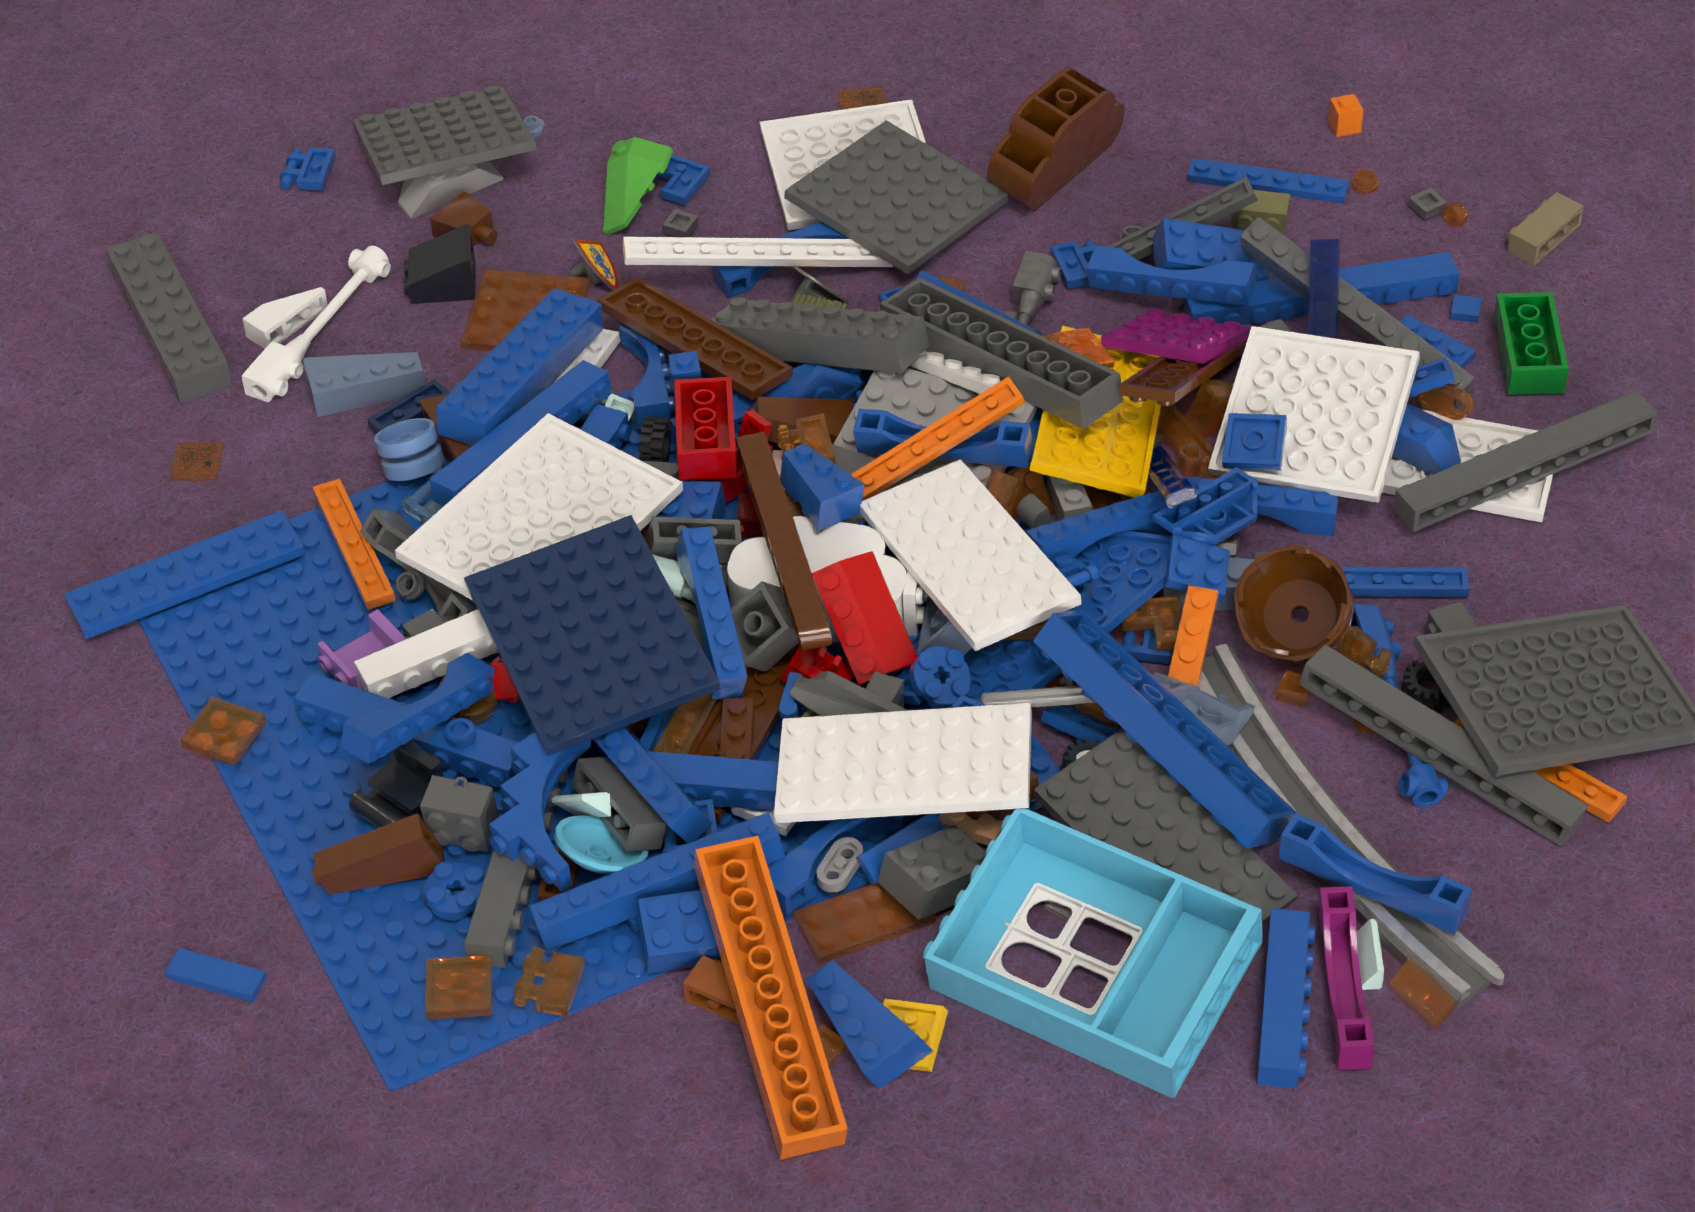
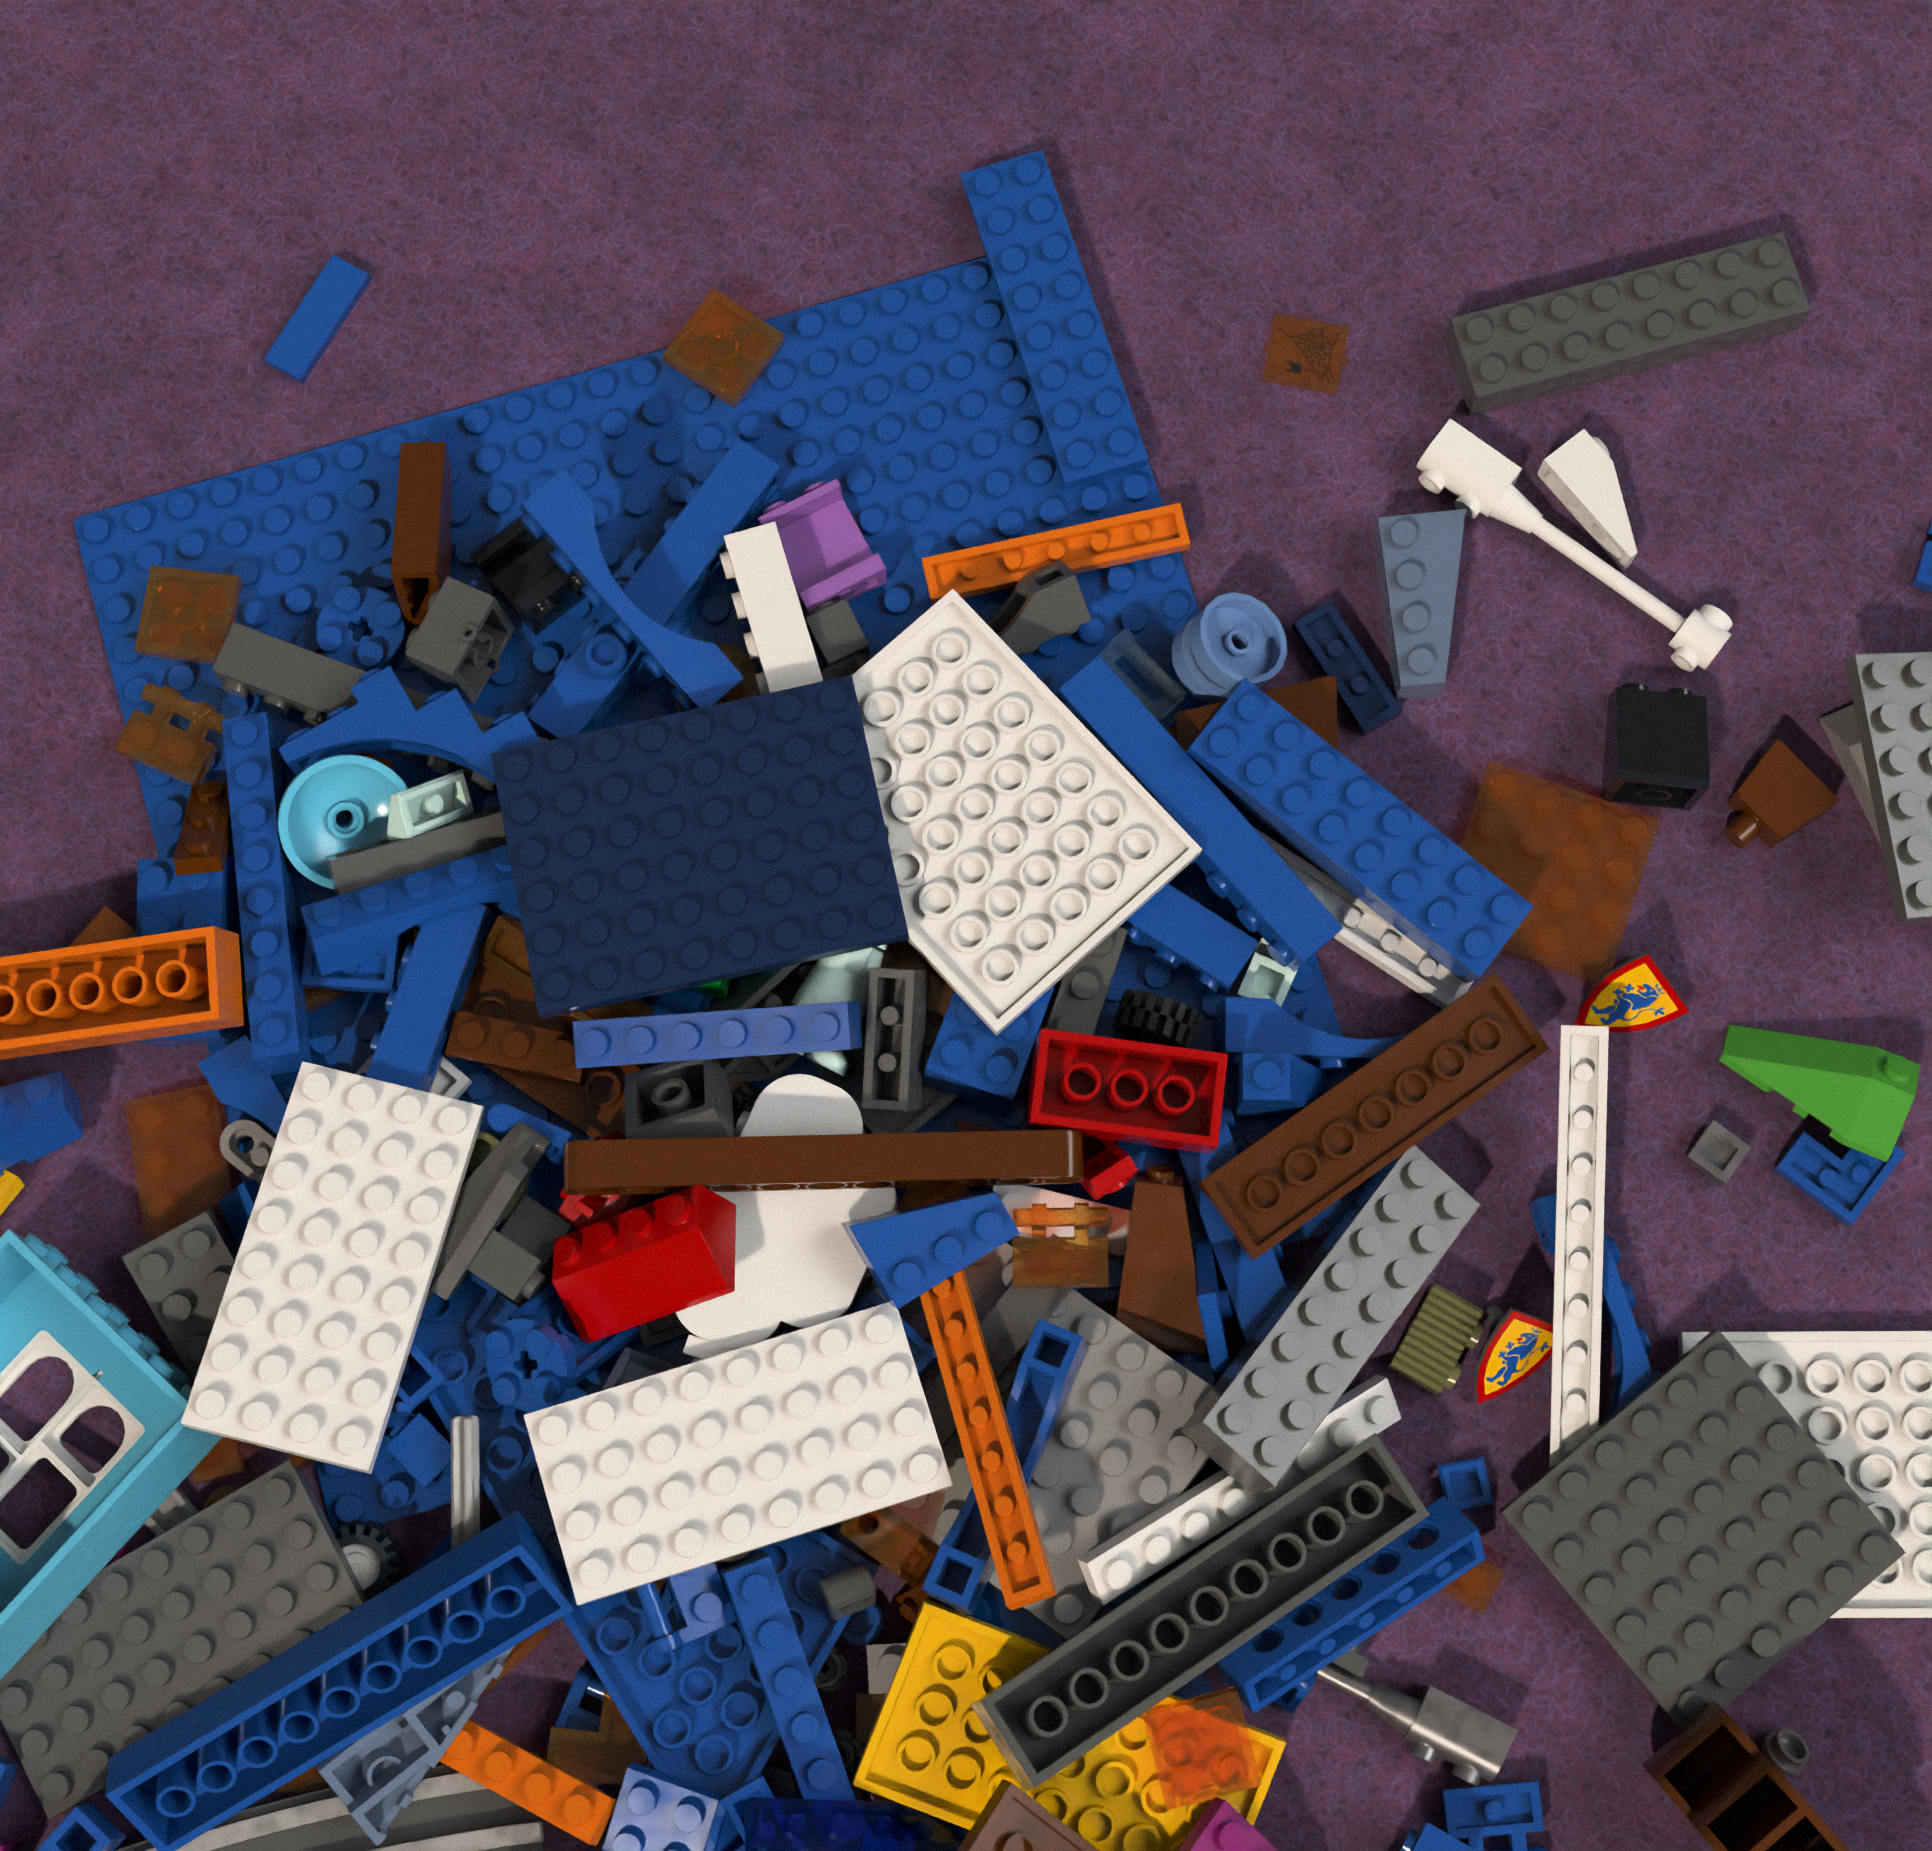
camera: 100 degrees right, 30 degrees up
(618, 922) = (204, 830): none -> reddish brown plate

